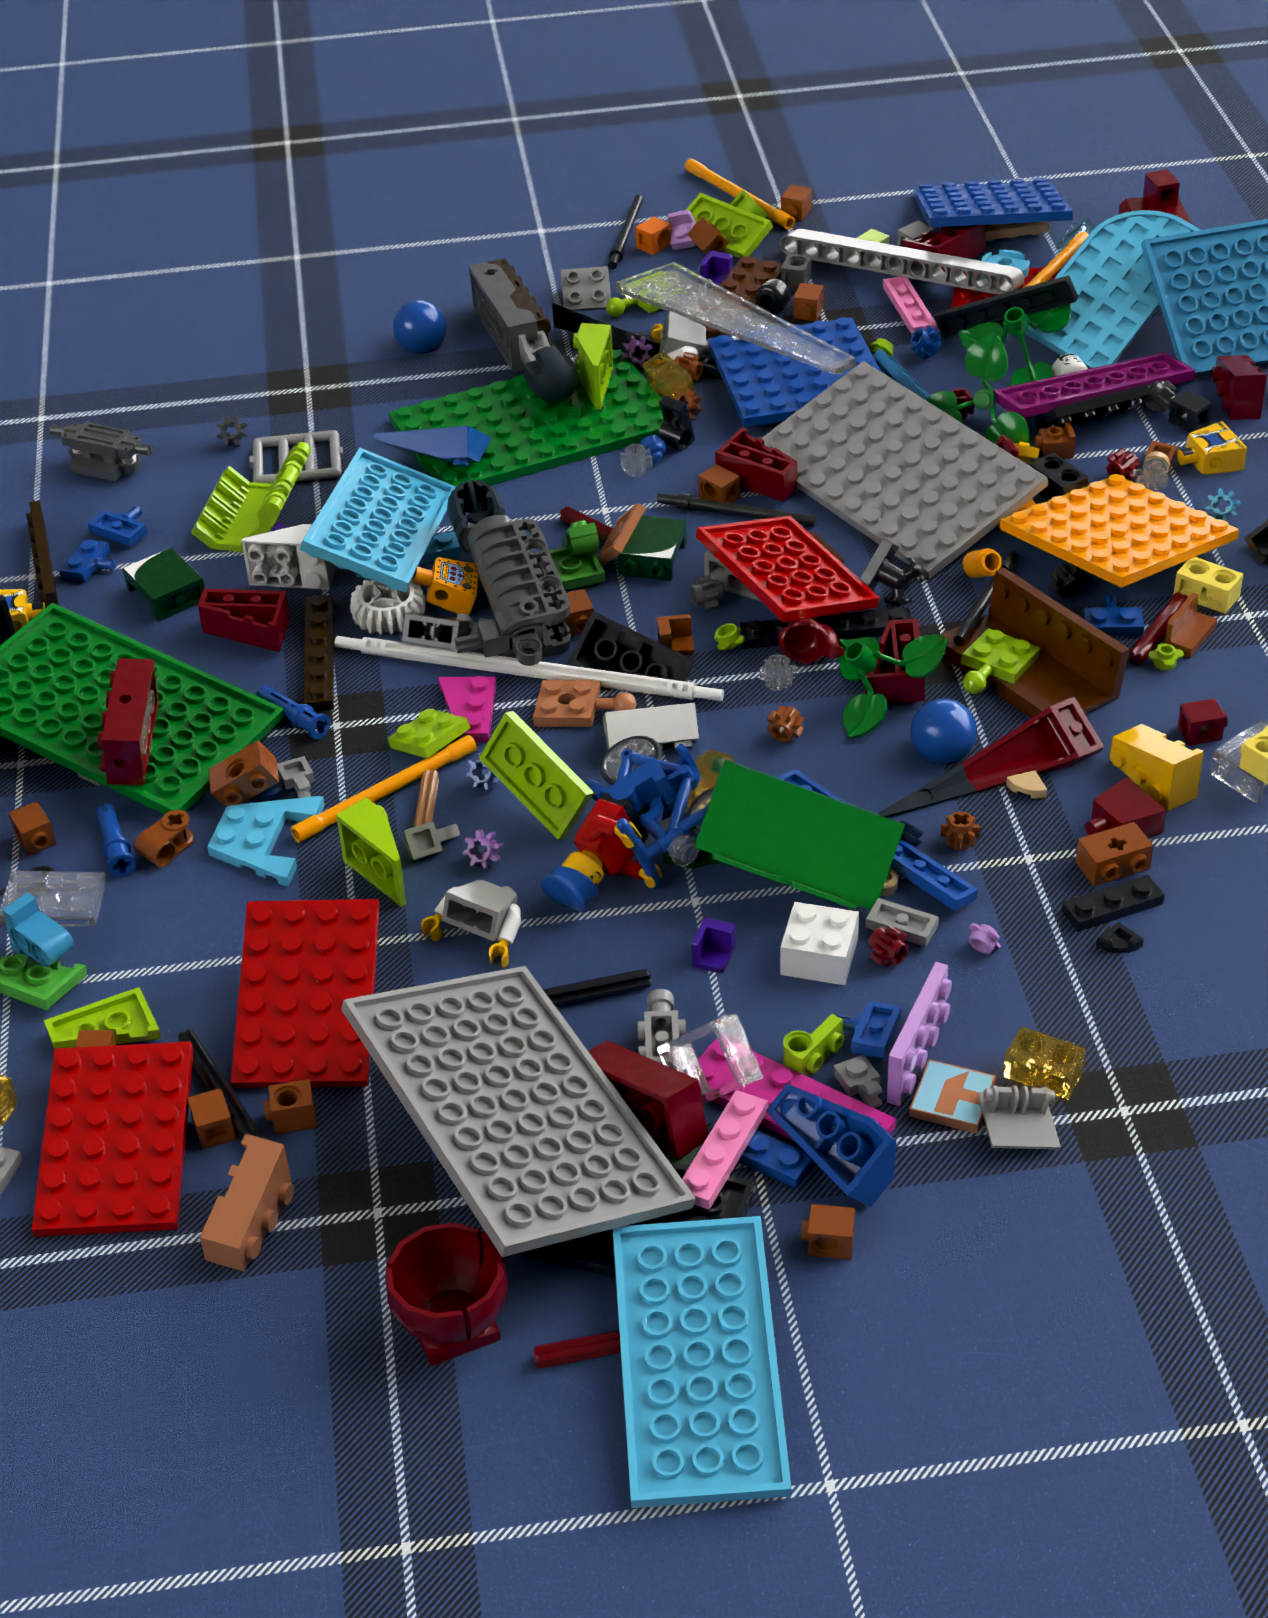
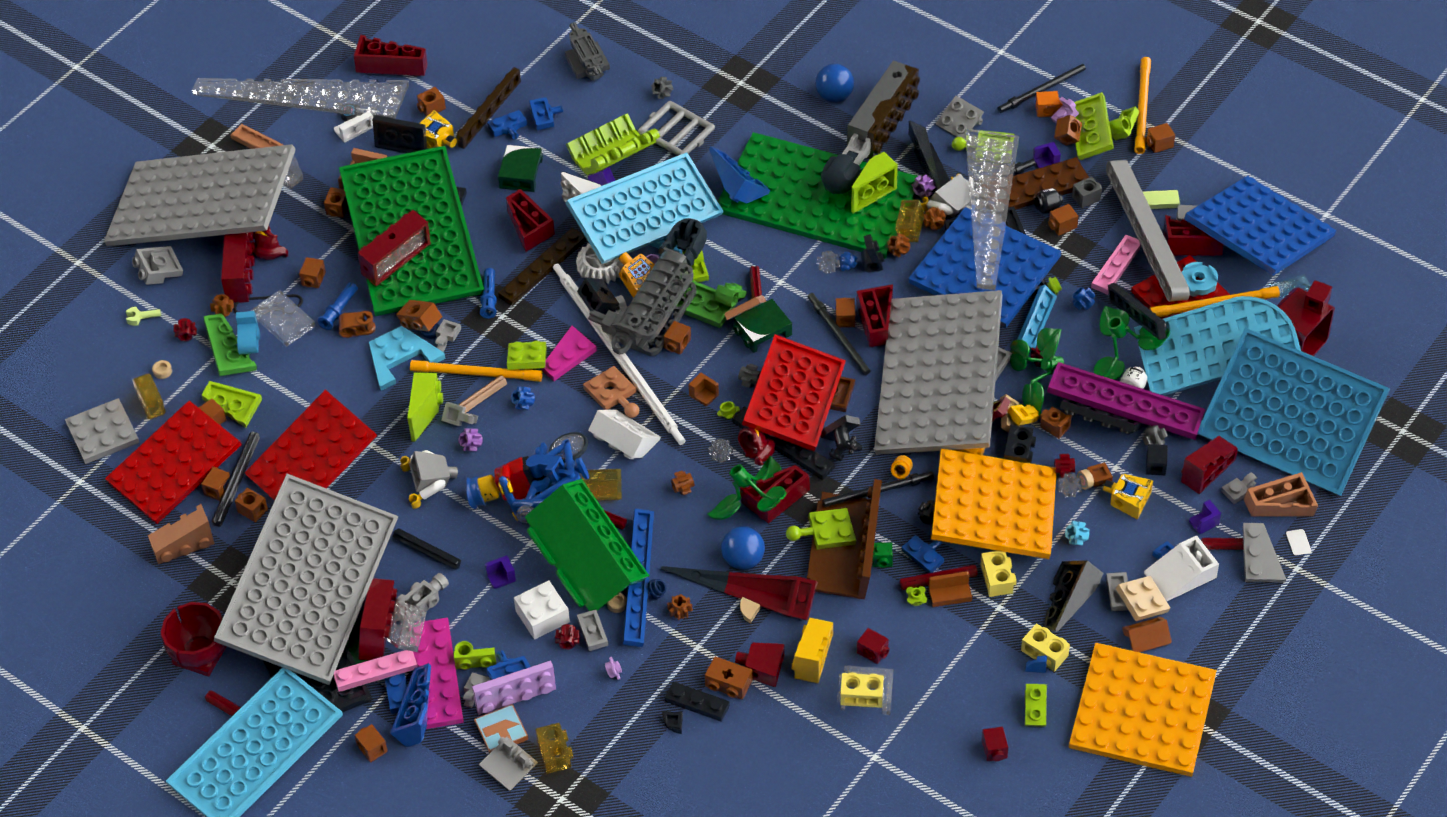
camera: 45 degrees right, 10 degrees up
(535, 775) = (526, 418): lime plate -> none
(620, 649) = (667, 377): black wedge -> none

